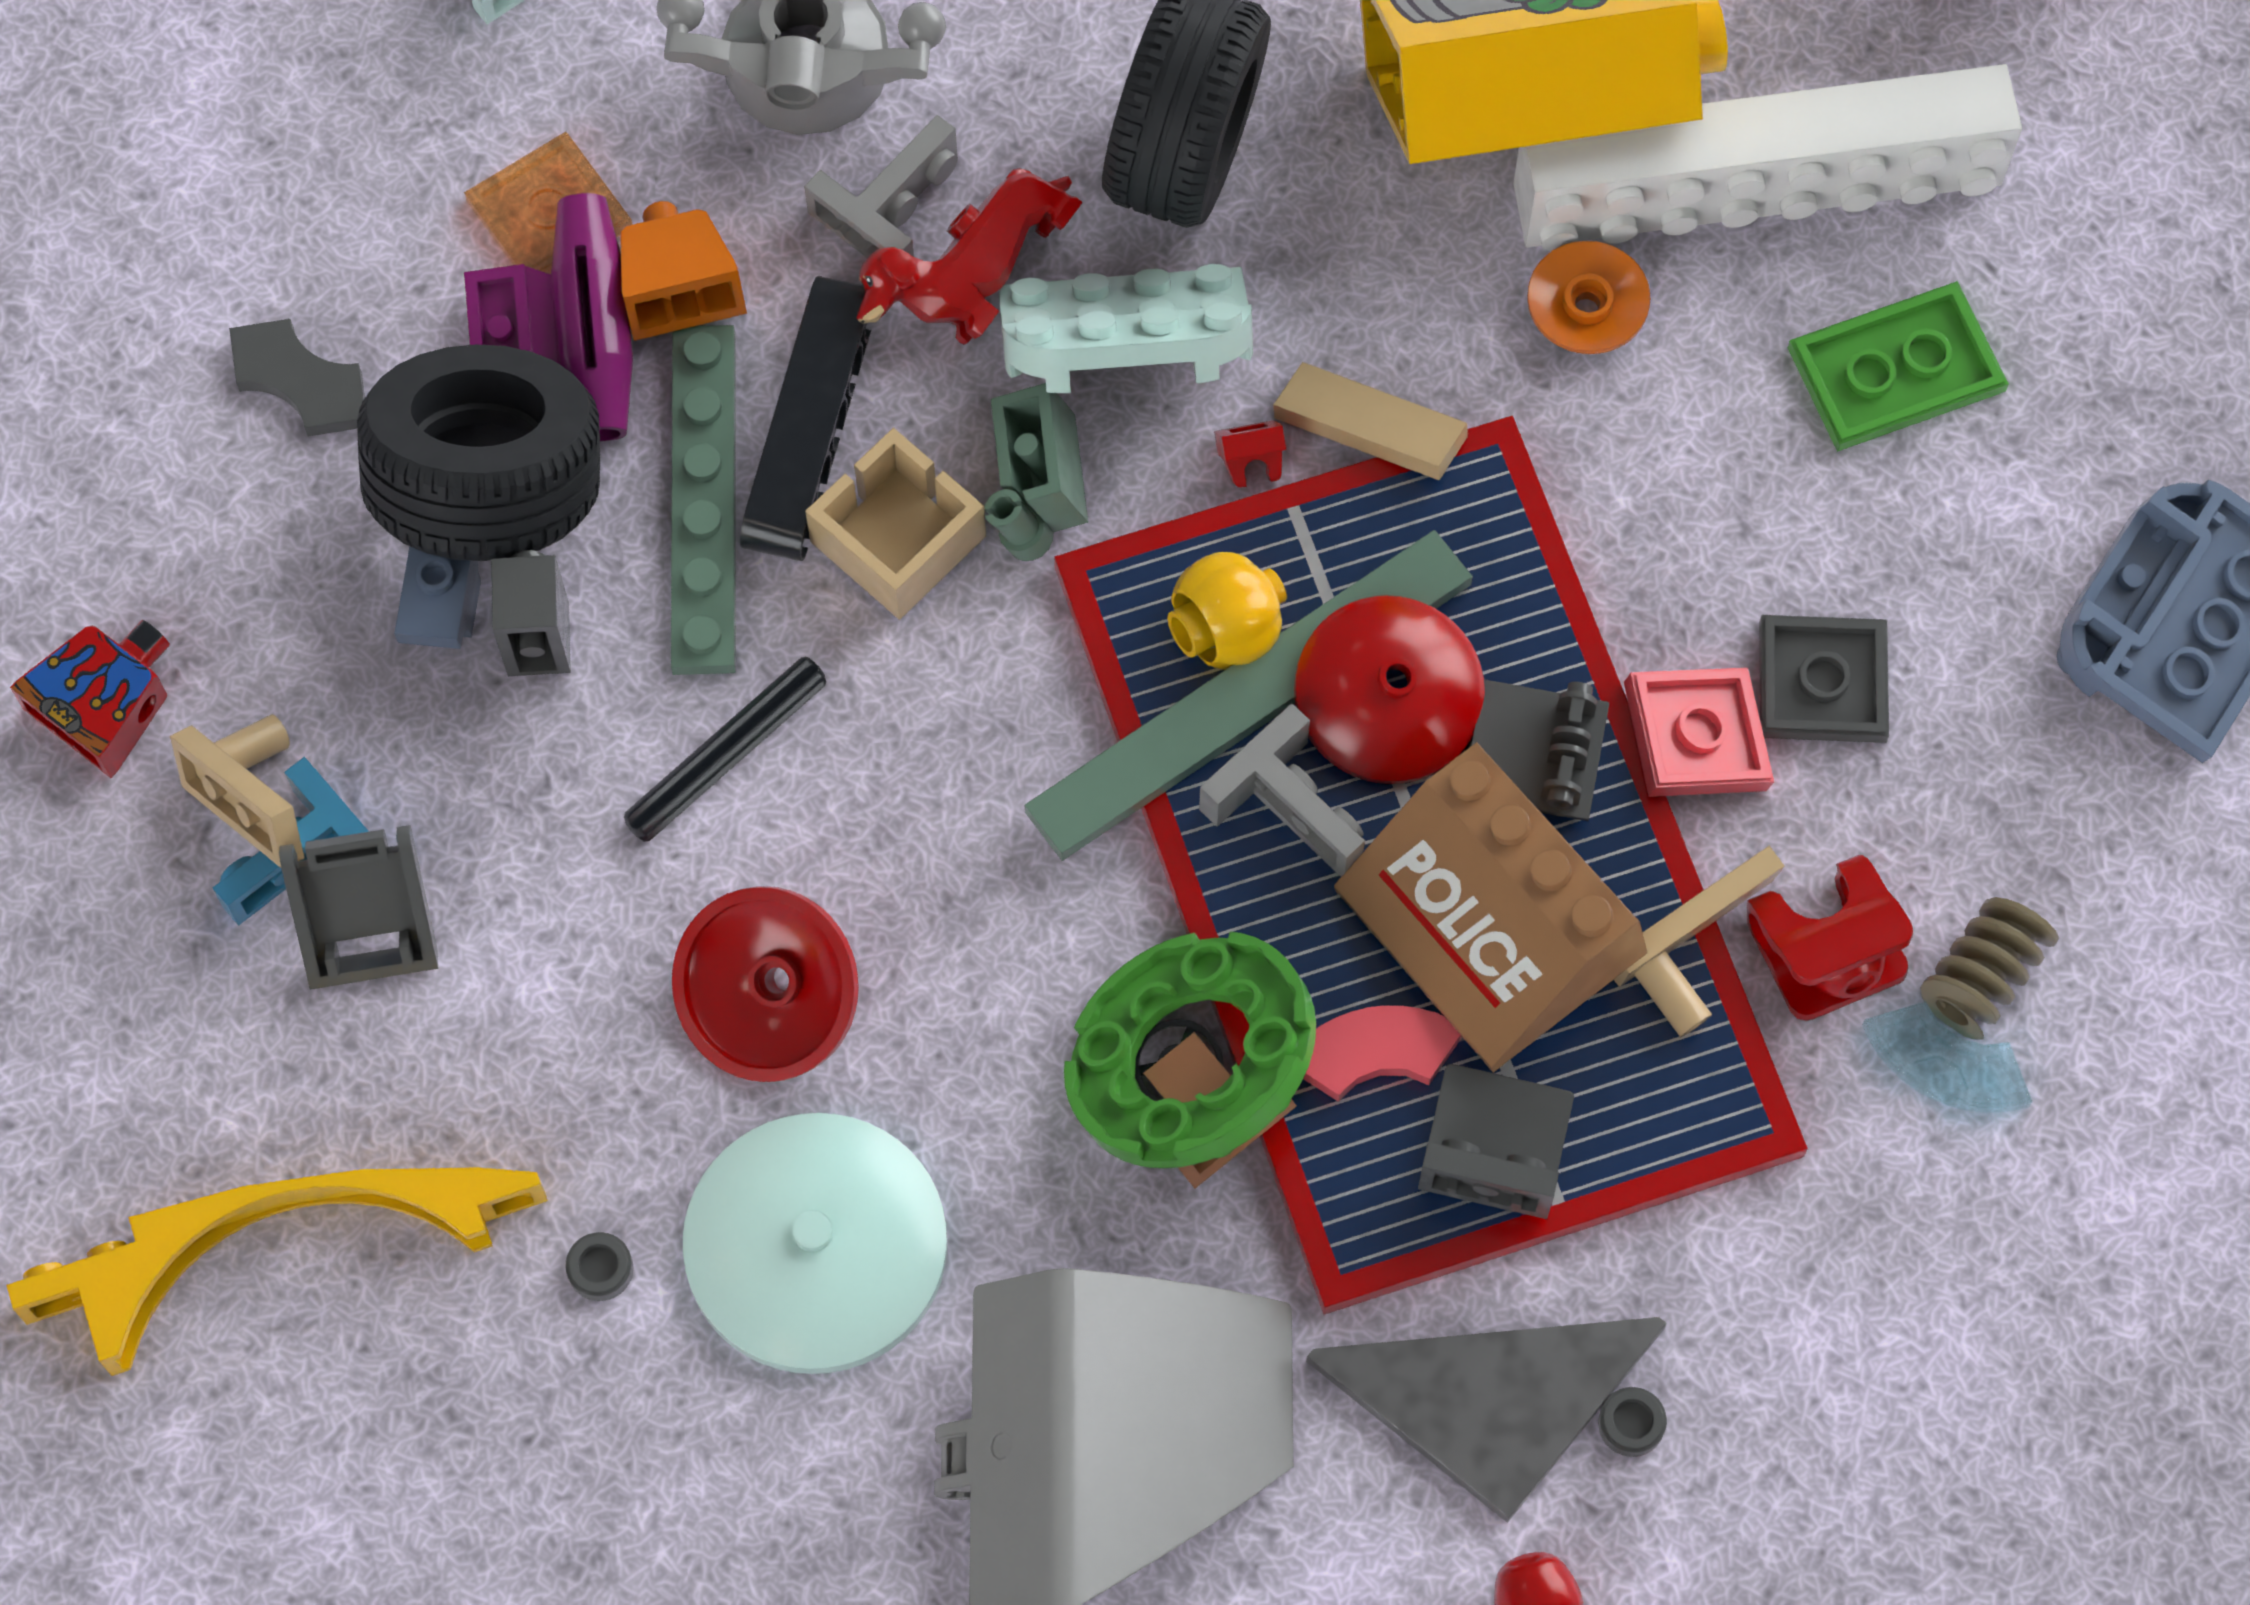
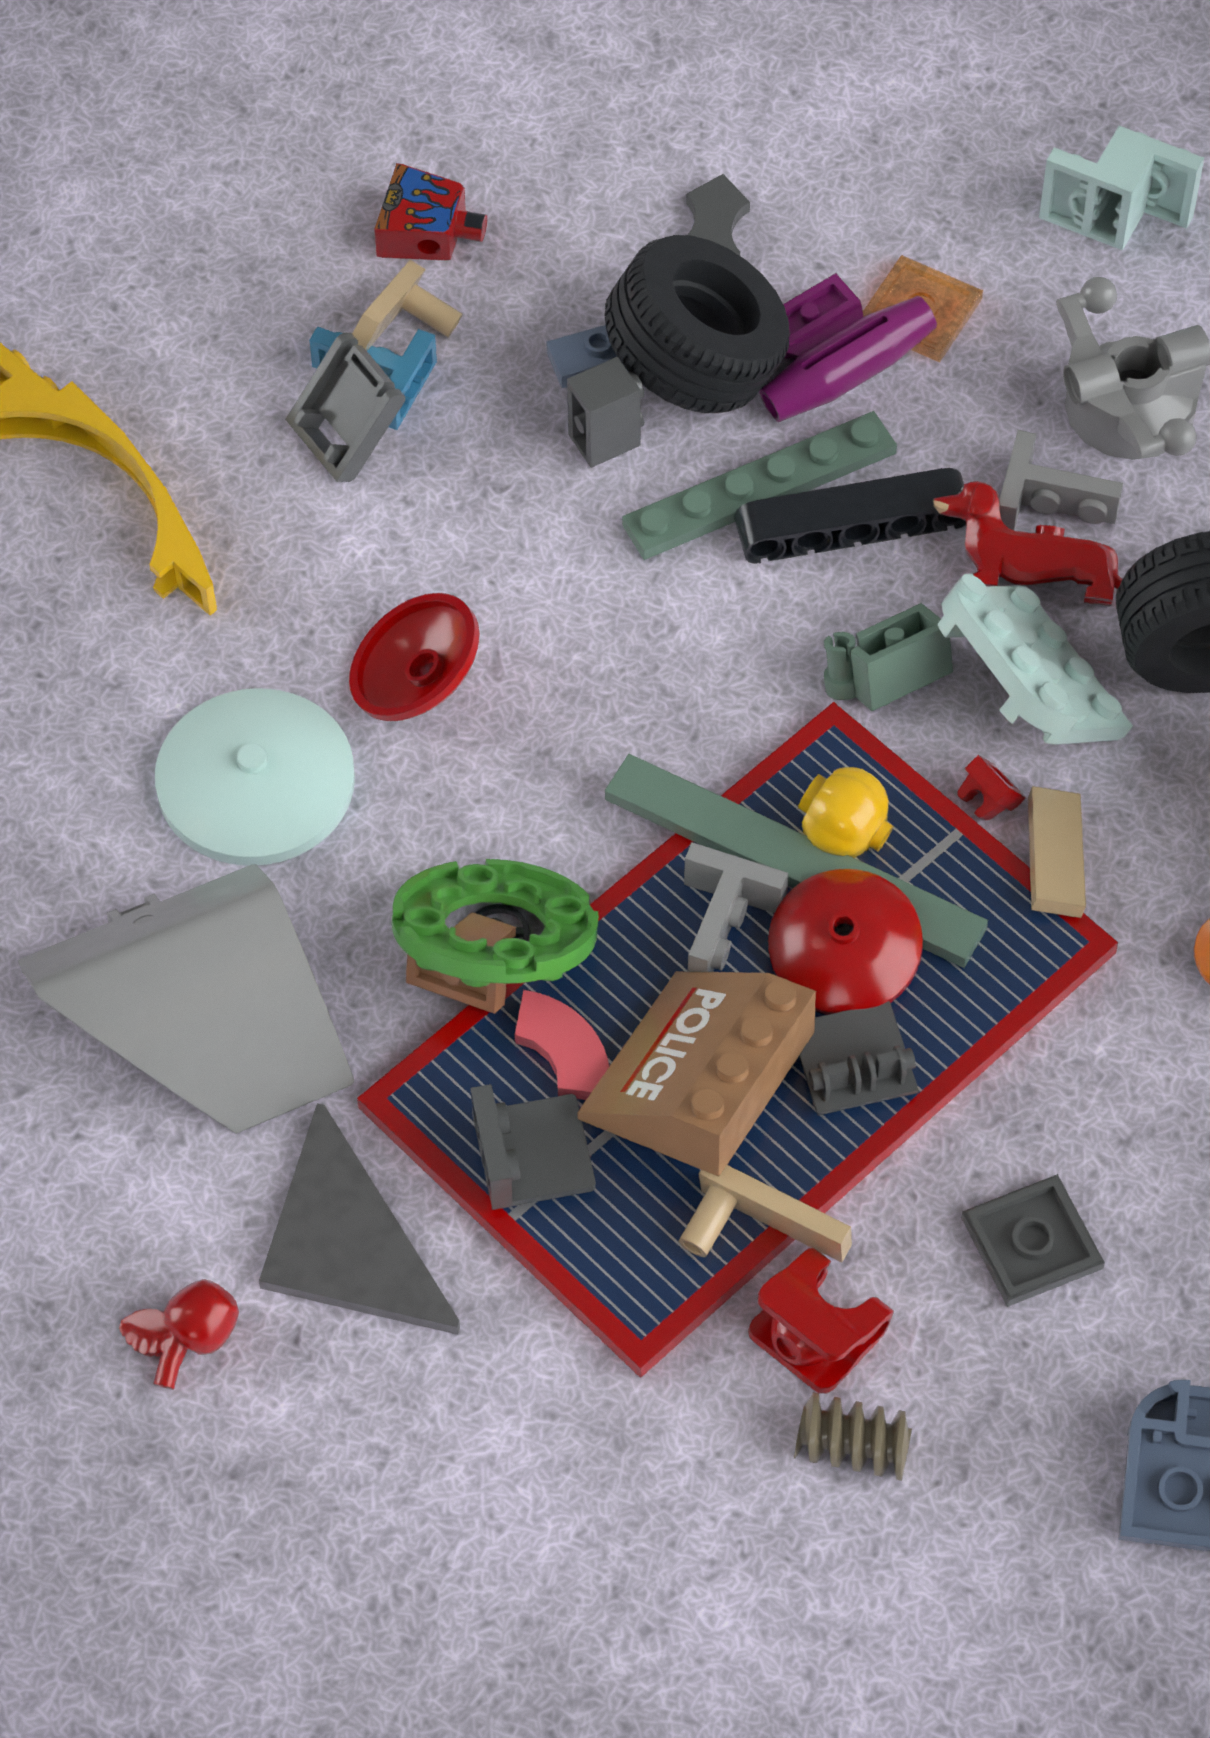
camera: 65 degrees right, 10 degrees down
(599, 1266) = (176, 661): dark grey tile -> none
(677, 272) = (909, 389): orange torso -> none
(724, 749) = (582, 574): black axle -> none
(897, 537) = (794, 607): tan piece -> none
(1632, 1421) = (373, 1338): dark grey tile -> none
(1698, 732) = (935, 1166): coral tile -> none
(1947, 1066) = (762, 1446): clear light blue tile -> none

